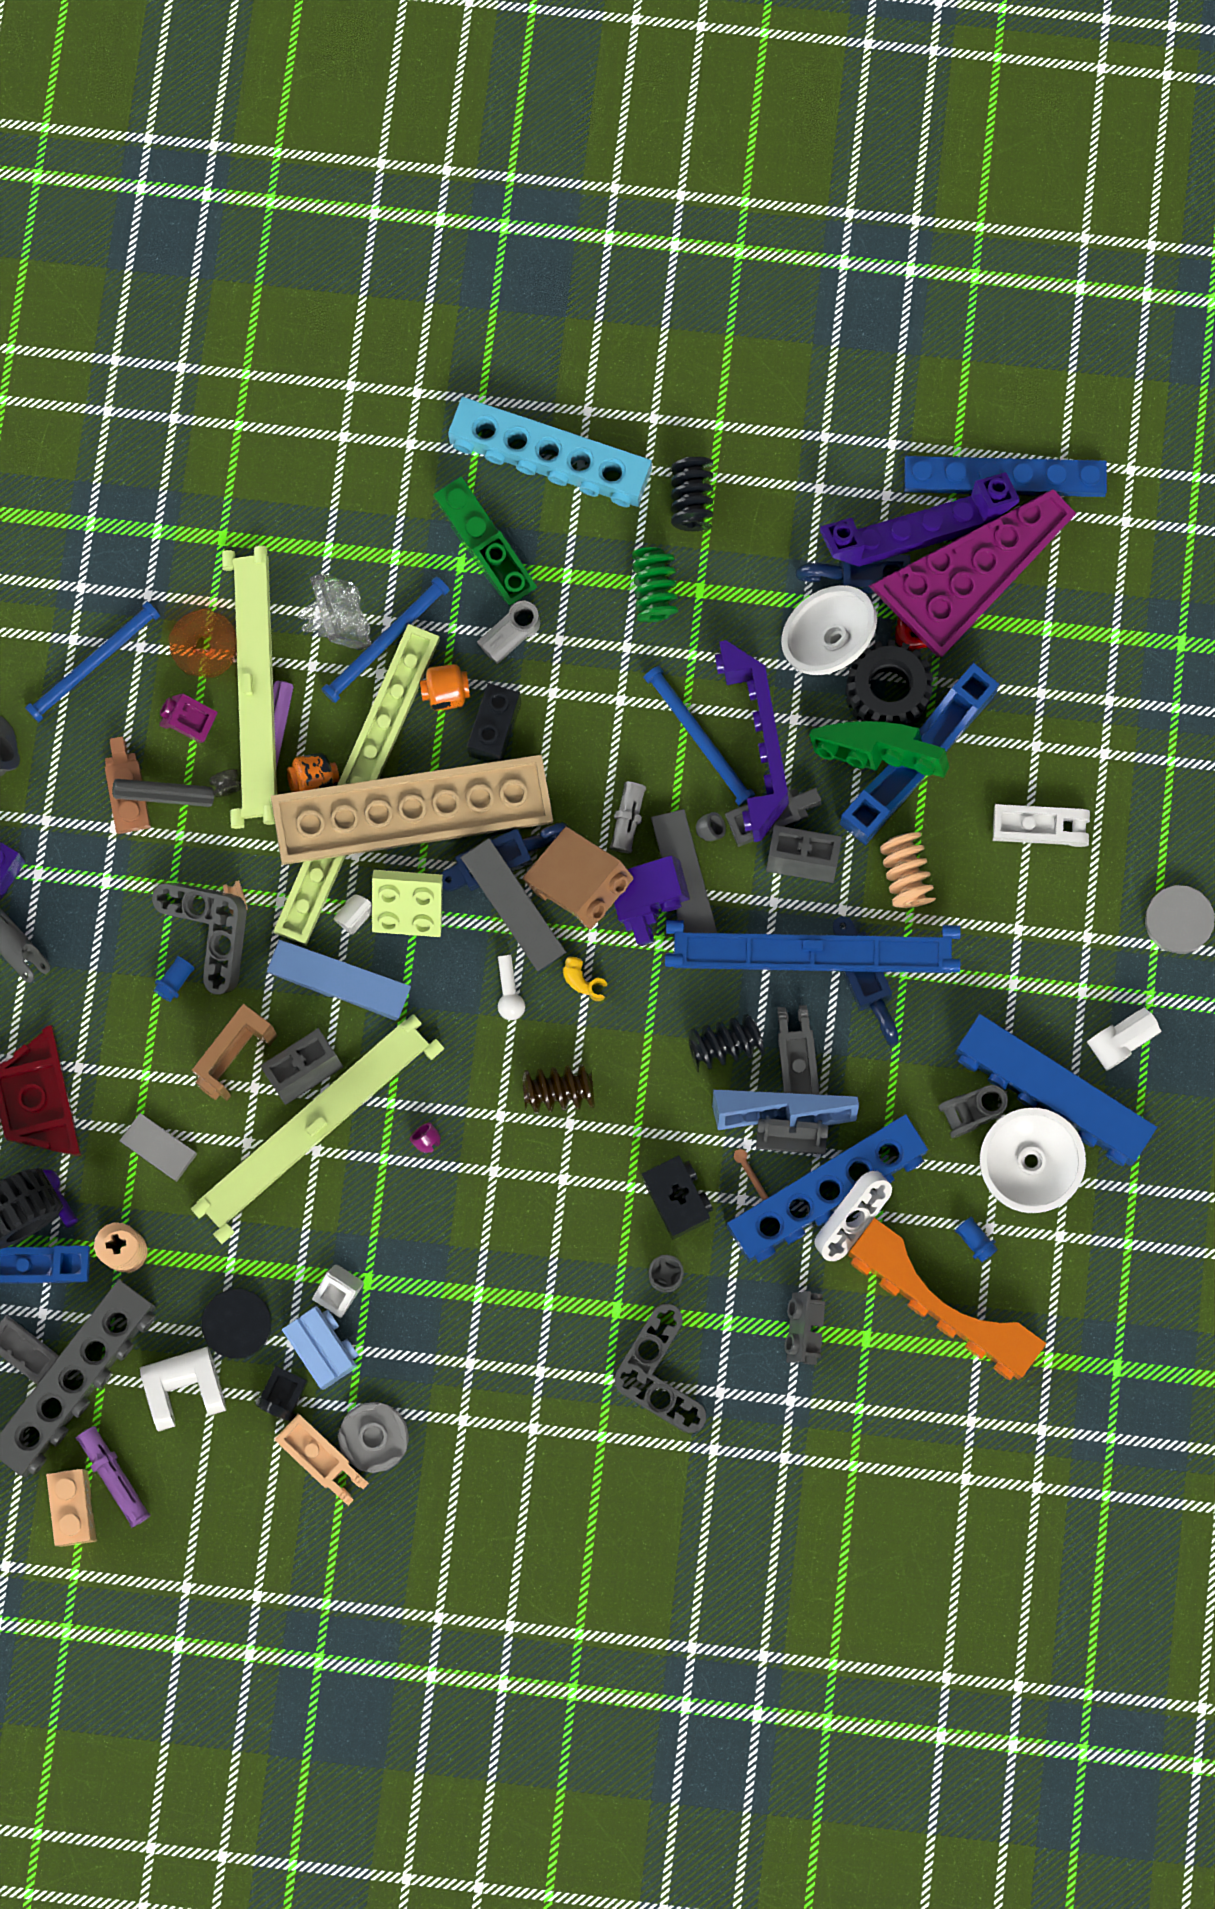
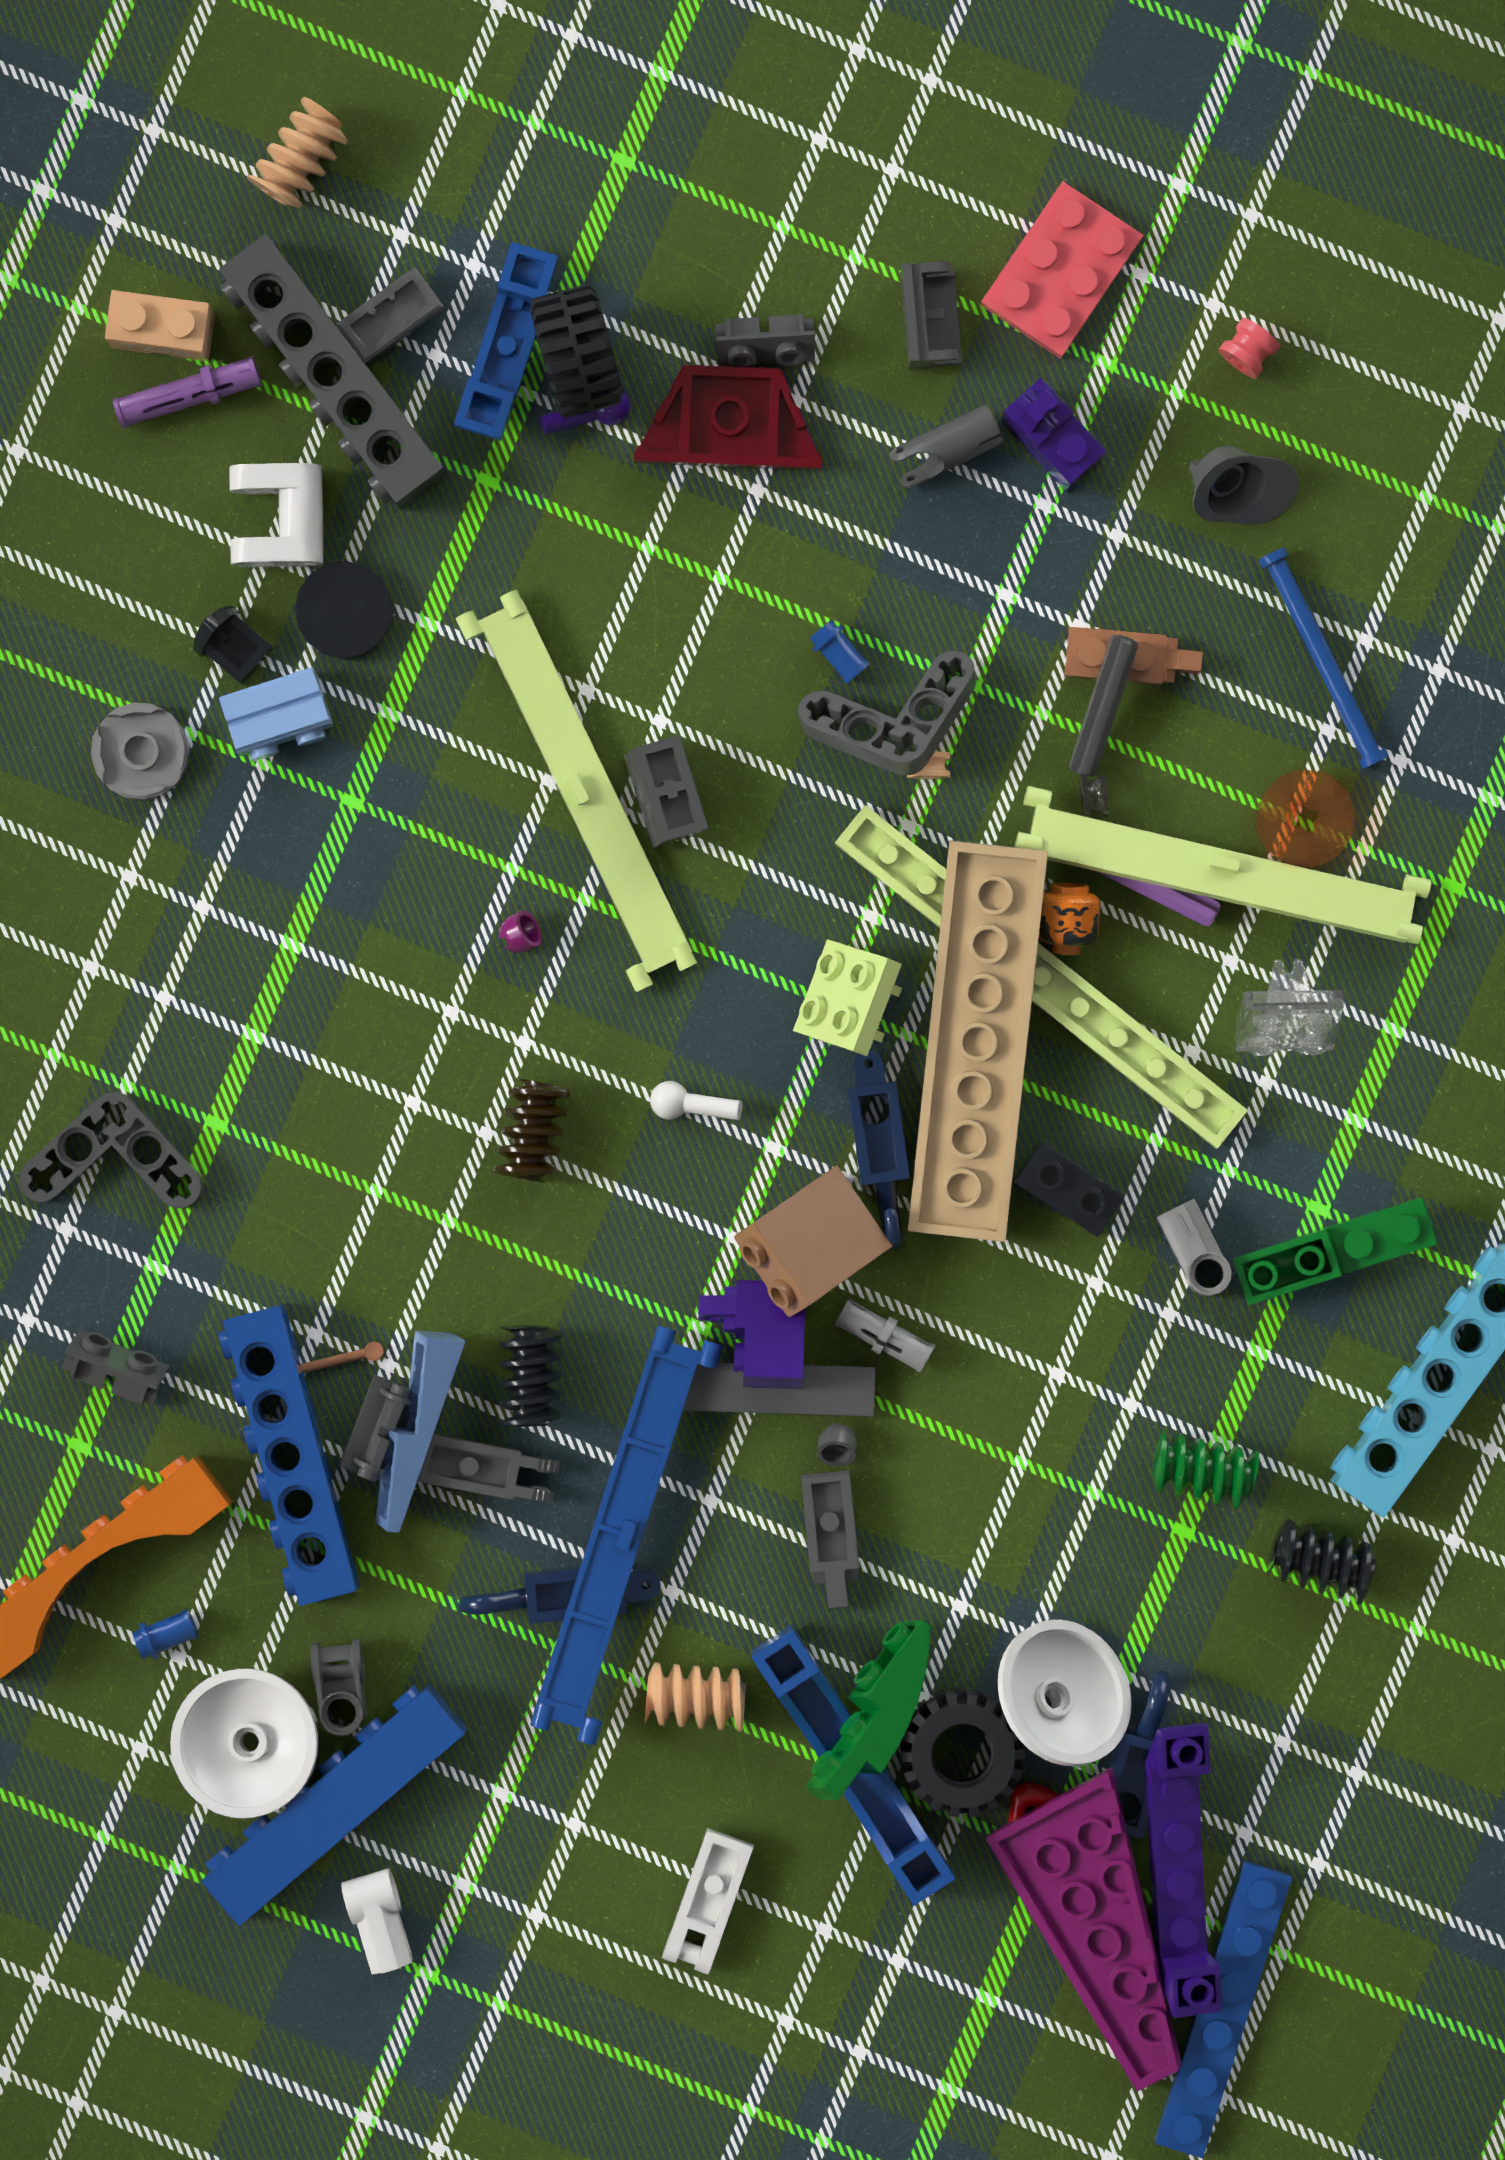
camera: 100 degrees right, 10 degrees up
(130, 1256) = (471, 467): light nougat piece -> none
(158, 1147) = (614, 568): light grey tile -> none
(187, 717) = (1203, 767): magenta bracket -> none
(227, 1047) = (743, 733): medium nougat panel -> none
(318, 1456) = (133, 671): light nougat hinge -> none
(337, 1290) = (350, 758): white slope -> none
(338, 980) = (771, 875): medium blue slope -> none
(354, 913) = (860, 920): white slope -> none
(385, 639) = (1237, 1073): blue bar -> none
(445, 687) = (1140, 1136): orange head -> none
(513, 904) = (805, 1142): dark grey tile -> none
(574, 977) = (681, 1197): yellow arm -> none
(660, 1185) = (309, 1243): black brick -> none
(668, 1269) = (231, 1203): dark grey wheel -> none
(699, 736) = (972, 1467): blue bar -> none
(740, 668) = (1051, 1549): dark purple slope -> none
(803, 854) = (761, 1562): dark grey hinge -> none
(873, 1200) = (257, 1500): white beam -> none
(1179, 919) = (521, 2050): light grey tile -> none

